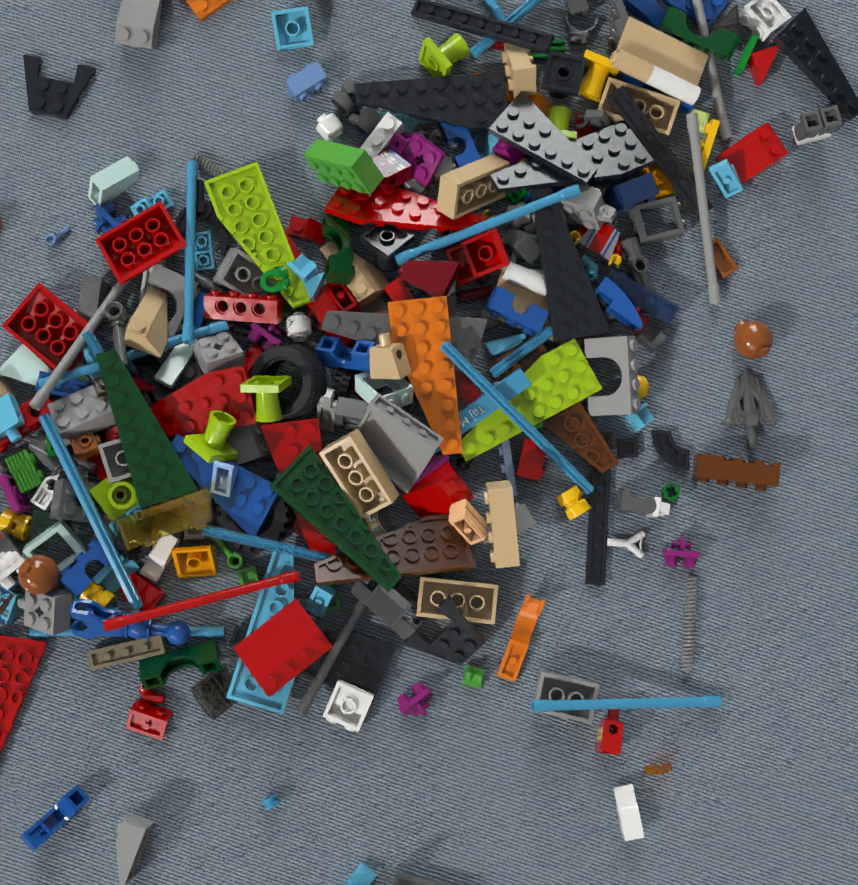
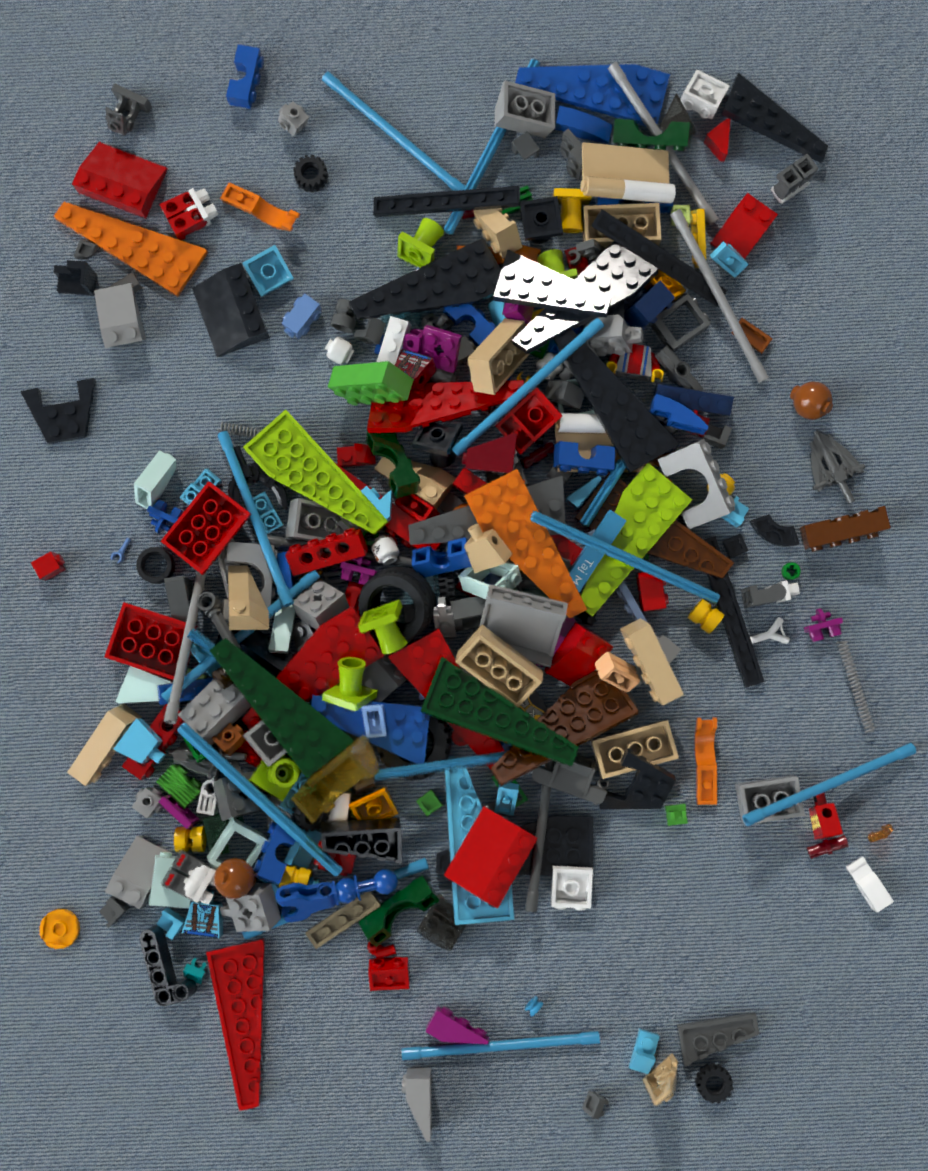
camera: 20 degrees left, 0 degrees up
(55, 818) = (338, 1101): blue arch -> none
(76, 248) = (140, 565): none -> black tyre
(121, 621) = (330, 892): red piece -> none
(143, 385) = (263, 661): dark red slope -> none
(149, 803) = (583, 1038): none -> dark azure piece
(171, 583) = (364, 838): none -> black wedge
(186, 793) = (452, 1029): none -> magenta slope
(229, 552) = (402, 787): bright green brick -> none
(244, 52) = (230, 310): none -> black slope
(280, 272) = (350, 505): green piece -> none
(303, 268) = (370, 493): medium azure panel -> none
(409, 705) = (627, 865): magenta hips -> none
(580, 36) = (537, 177): flat silver helmet -> none
(592, 267) = (636, 389): medium azure arm -> none
(603, 762) = (827, 846): none -> dark red pin
(745, 55) = (701, 137): green tile -> none

